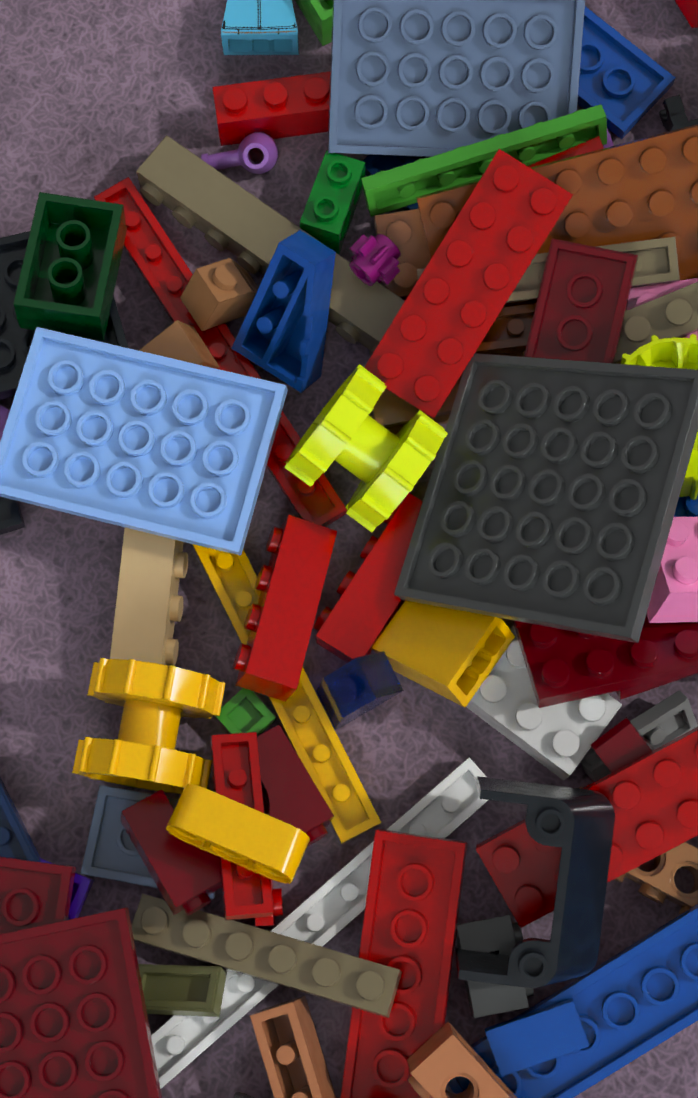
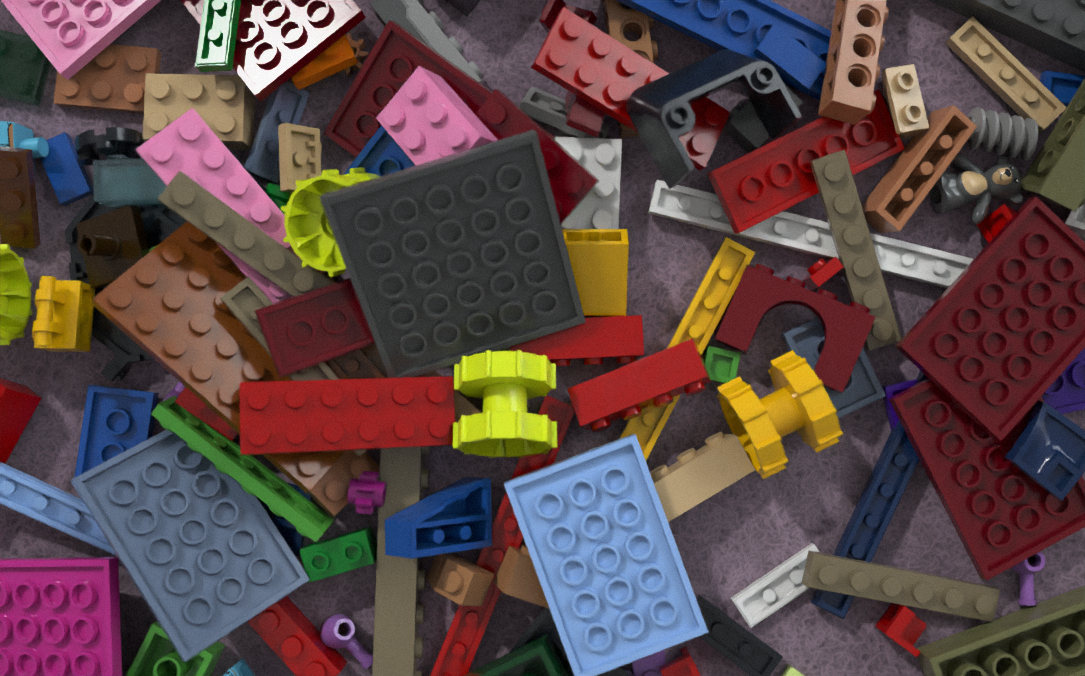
camera: 125 degrees left, 10 degrees up
(183, 989) = (908, 286): olive tile -> none
(238, 833) = (812, 306): yellow beam -> none
(239, 778) = (799, 312): red plate -> none
(358, 688) = (658, 303): clear blue slope -> none

